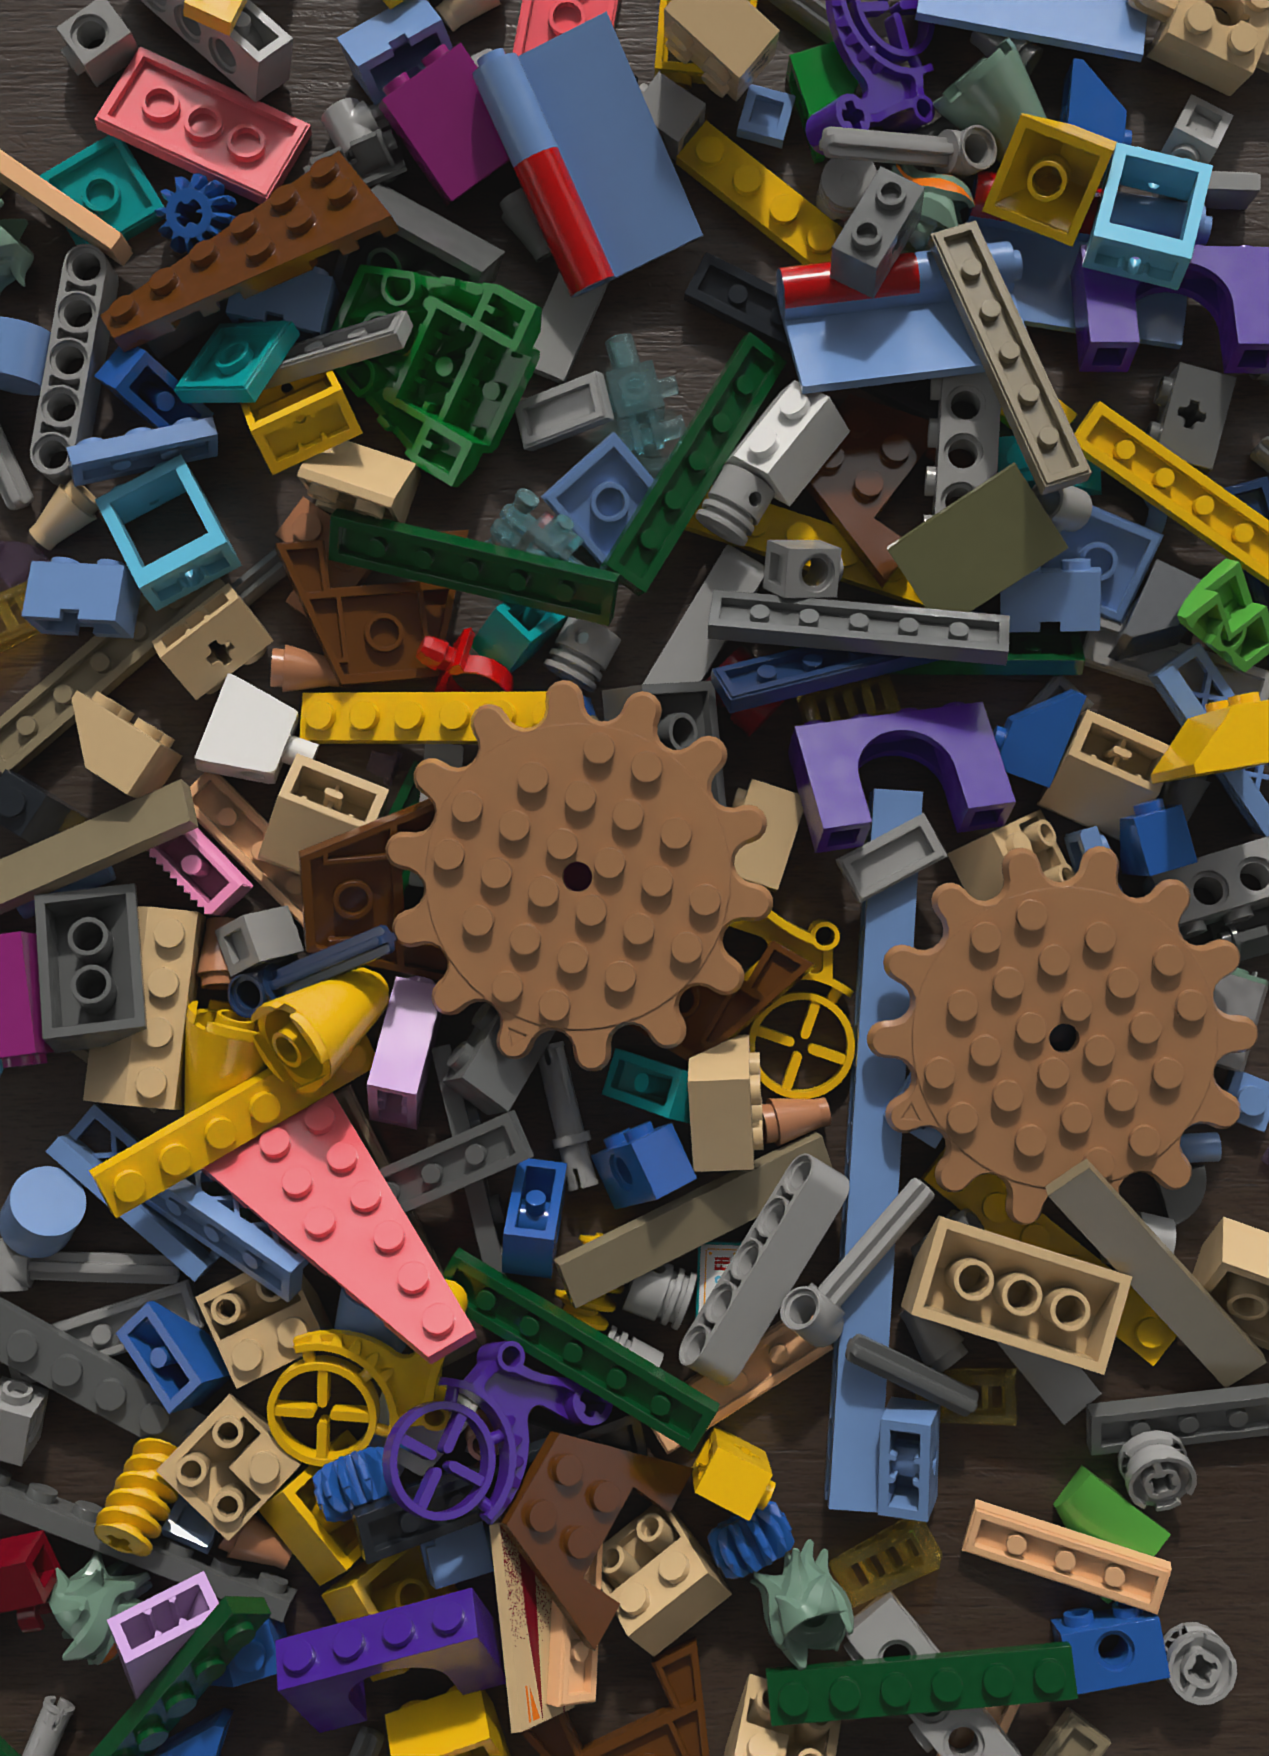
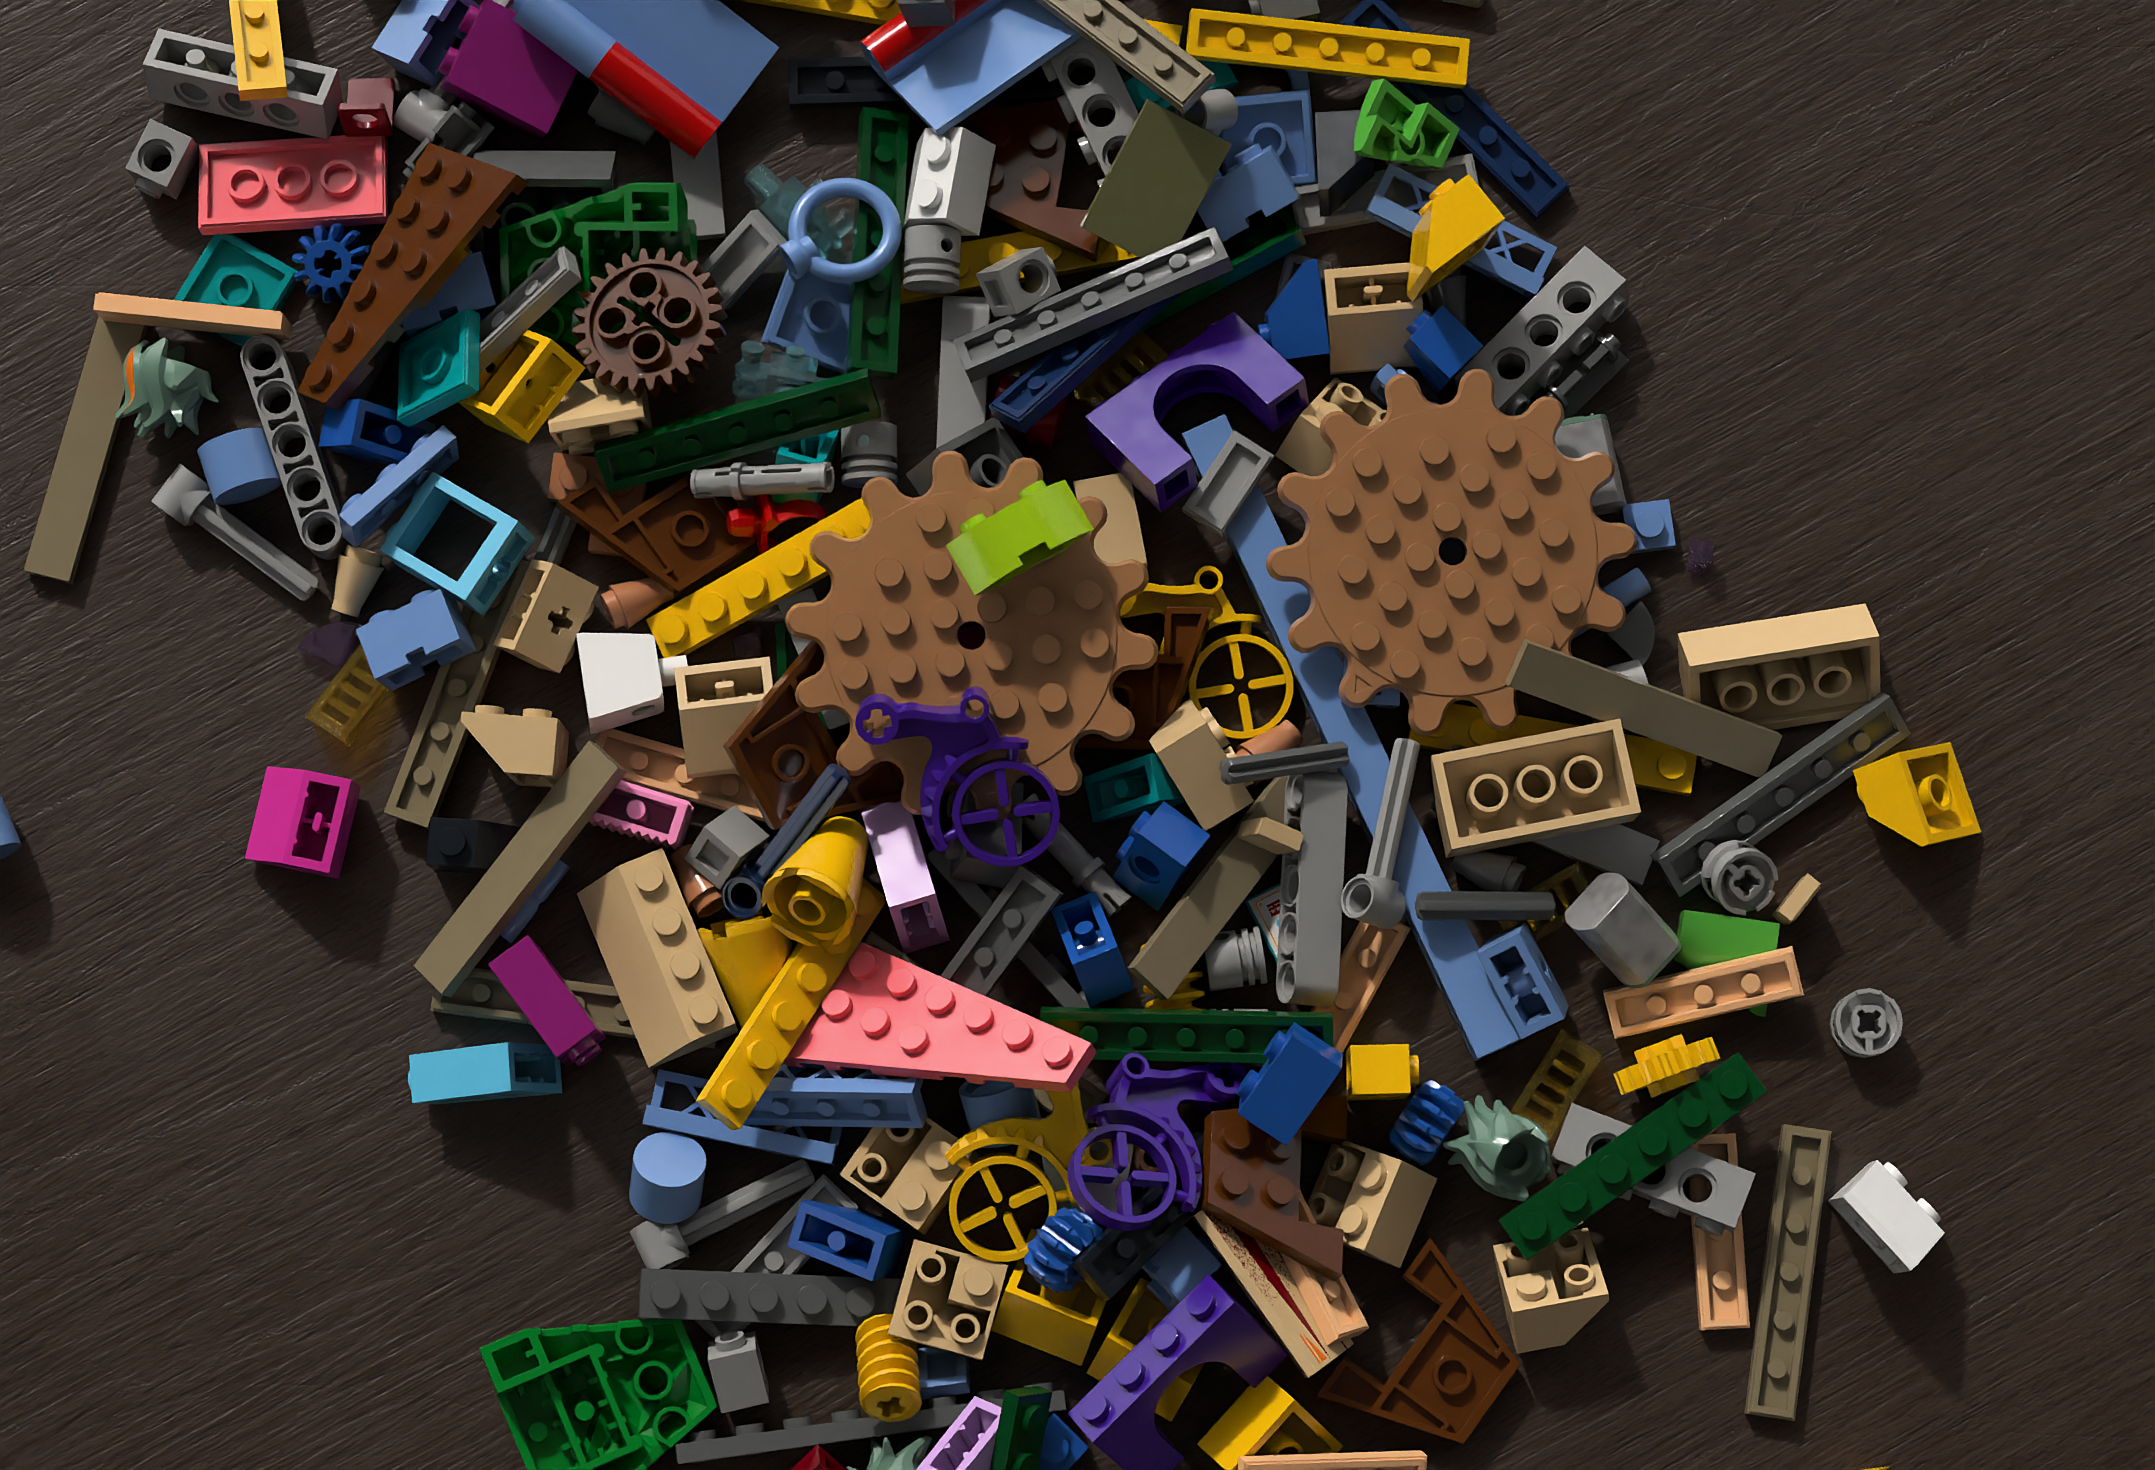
camera: 20 degrees left, 5 degrees down
(90, 967) = (597, 943): dark grey slope -> none
(257, 1544) = (1006, 1364): nougat cone -> none
(306, 93) = (368, 107): none -> dark red bracket
(453, 616) = (745, 481): none -> light grey pin
(487, 407) = (678, 290): none -> reddish brown gear
(509, 967) = (955, 738): none -> dark purple piece
(618, 435) = (802, 254): none -> medium blue piece
(642, 1452) = (1288, 1083): none -> blue brick
(669, 812) = (1018, 536): none -> lime brick
(752, 1205) = (1270, 835): none -> tan tile
(800, 1149) = (1284, 763): none -> dark grey axle
(996, 1612) = (1666, 1065): none -> yellow gear
(1025, 1465) = (1623, 930): none -> flat silver piece
(1135, 1658) = (1810, 1037): blue brick -> none
(1196, 1517) = (1796, 900): none -> tan tile

